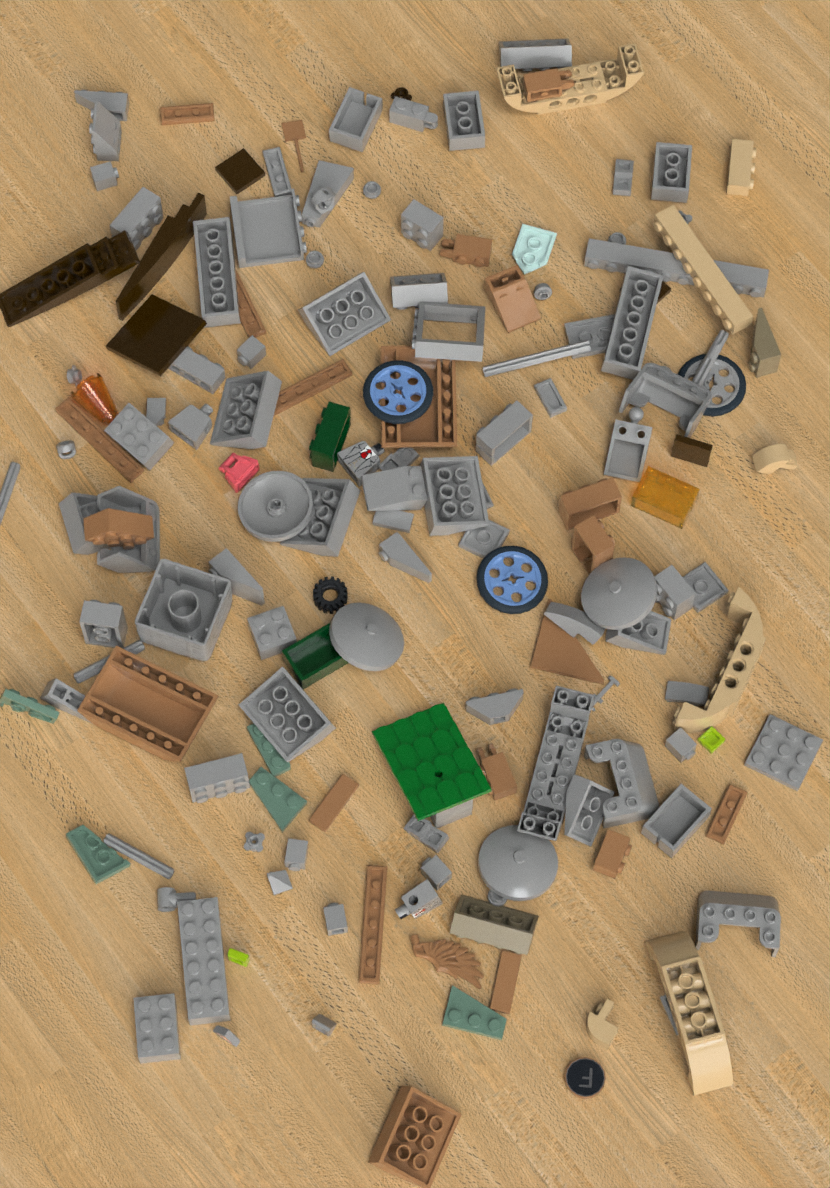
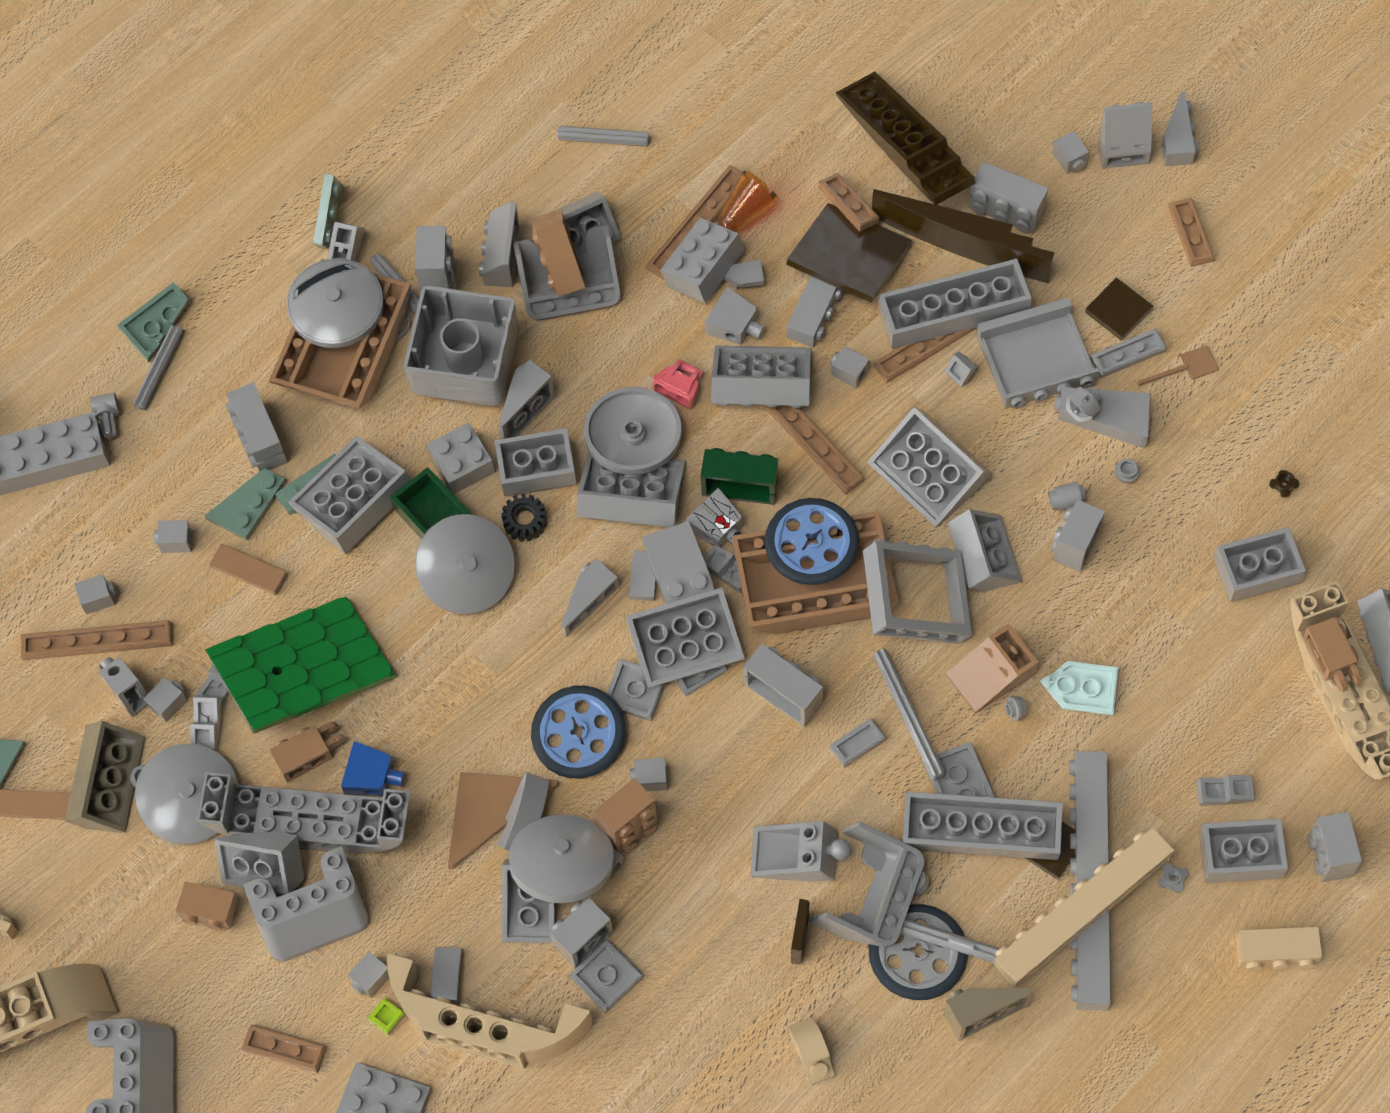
camera: 85 degrees right, 0 degrees up
(64, 447) = (678, 186): light grey tile -> none
(74, 375) = (778, 176): light grey plate -> none
(92, 578) = (498, 248): none -> light grey slope
(109, 330) = (848, 202): none -> medium nougat tile
(122, 702) = (335, 303): none -> light grey dish
(238, 957) = (39, 495): lime tile -> none
(254, 846) = (192, 492): light grey plate -> none
(269, 279) = (960, 369): none -> light grey tile
(279, 881) = (140, 525): light grey slope -> none
(288, 577) = (535, 462): none -> light grey brick
(314, 259) = (1005, 419): light grey plate -> none
(355, 120) = (1226, 429): light grey piece -> none
(385, 230) = (1066, 495): none -> light grey brick
(412, 115) = (1254, 498): light grey brick -> none
(449, 959) = (58, 734): medium nougat animal -> none
(459, 844) = (206, 722): none -> light grey slope
(468, 250) = (1059, 605): medium nougat hinge -> none
(495, 707) = (395, 737): light grey slope -> none
(521, 728) = (369, 772): none -> blue torso
(555, 535) = (650, 773): none -> light grey brick
(597, 499) = (697, 808): medium nougat piece -> none
(597, 698) = (404, 849): light grey piece -> none
(617, 238) = (1119, 795): light grey plate -> none
(665, 497) = (727, 908): clear yellow piece -> none
(676, 820) = (259, 979): light grey piece -> none
(678, 117) = (1334, 847): none -> light grey brick

